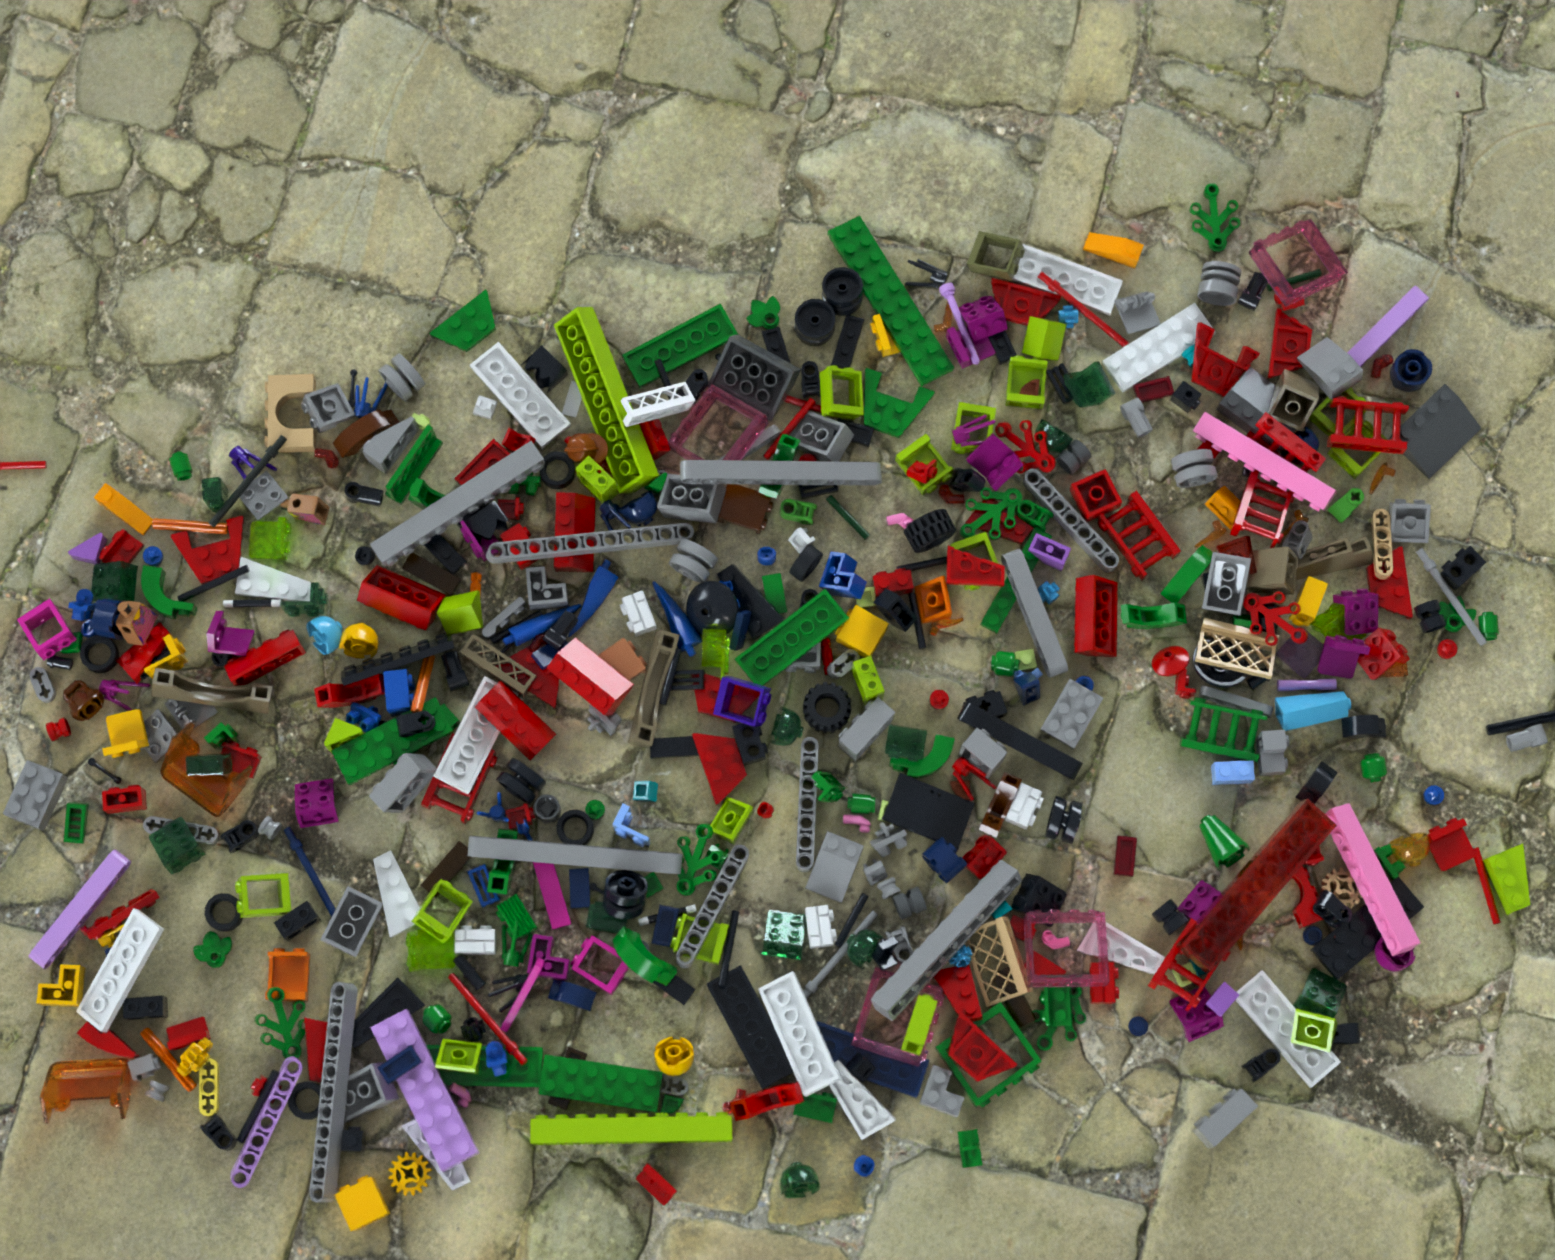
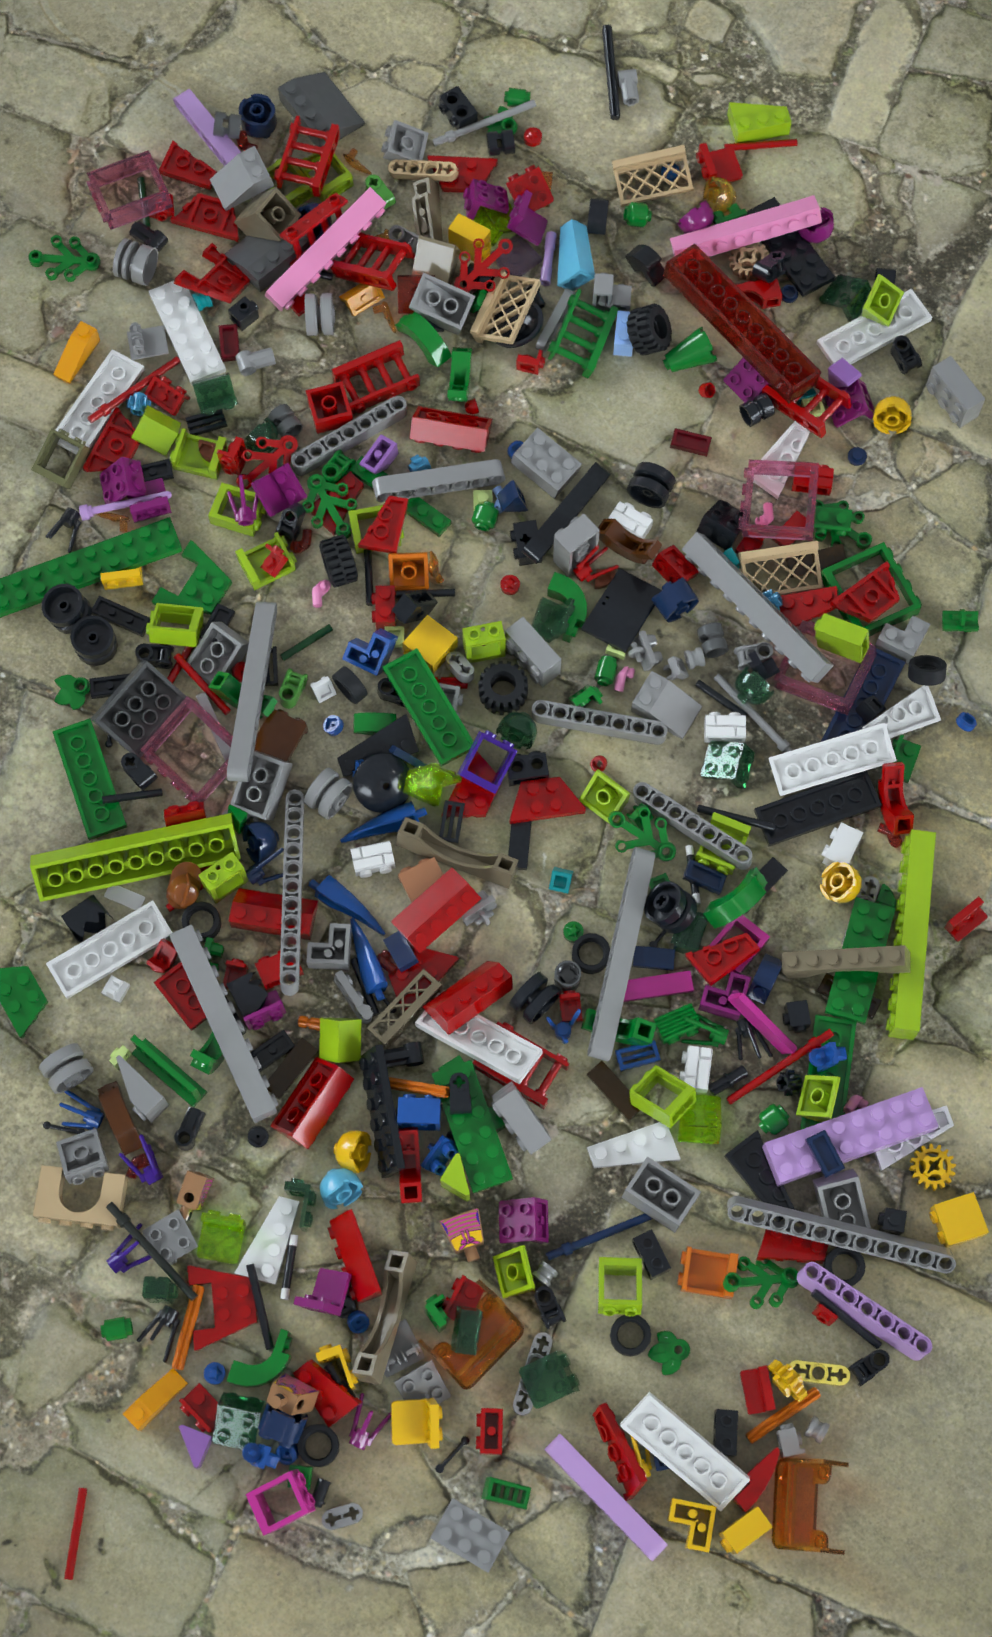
camera: 80 degrees left, 5 degrees down
(58, 729) = (397, 1501): red wheel -> none
(59, 1034) = (744, 1531): none -> yellow piece
(84, 701) = (371, 1467): reddish brown piece -> none
(195, 506) = (164, 1317): none -> black plant
(209, 670) = (358, 1321): none -> blue tile
(268, 801) = (514, 1272): none -> lime slope
(297, 751) = (464, 1233): none -> torso
(321, 470) = (152, 1172): none -> dark purple plant
(524, 829) = (585, 1002): blue hand -> none
(538, 1029) = (797, 1016): none -> black brick
(558, 633) = (382, 940): black piece -> none
(581, 950) = (719, 960): none -> red wing
(590, 1067) = (875, 959): none -> dark tan arch
(622, 820) = (592, 903): light blue bracket -> none
(661, 407) = (161, 808): white fence -> none
(670, 677) = (449, 836): black bar -> none
(714, 1054) = (843, 844): none -> white brick
(798, 1180) = (975, 782): clear green cylinder -> none
(898, 1119) = (927, 670): none -> black tyre
(1024, 413) = (232, 461): none -> red bracket
(1084, 341) = (166, 395): none -> red bracket
(1125, 634) = (471, 407): none -> red hinge
(1170, 661) = (512, 369): red dish -> none
(1184, 864) = (706, 390): none -> red hinge
(1189, 1055) = (892, 415): none -> yellow cylinder
(1236, 794) = (649, 329): none -> black tyre
(1340, 312) = (184, 167): none -> red wing
(1377, 829) = (697, 218): none -> magenta cylinder
(1390, 347) = (234, 124): none -> dark grey wheel
(1437, 769) = (647, 161): none -> tan fence

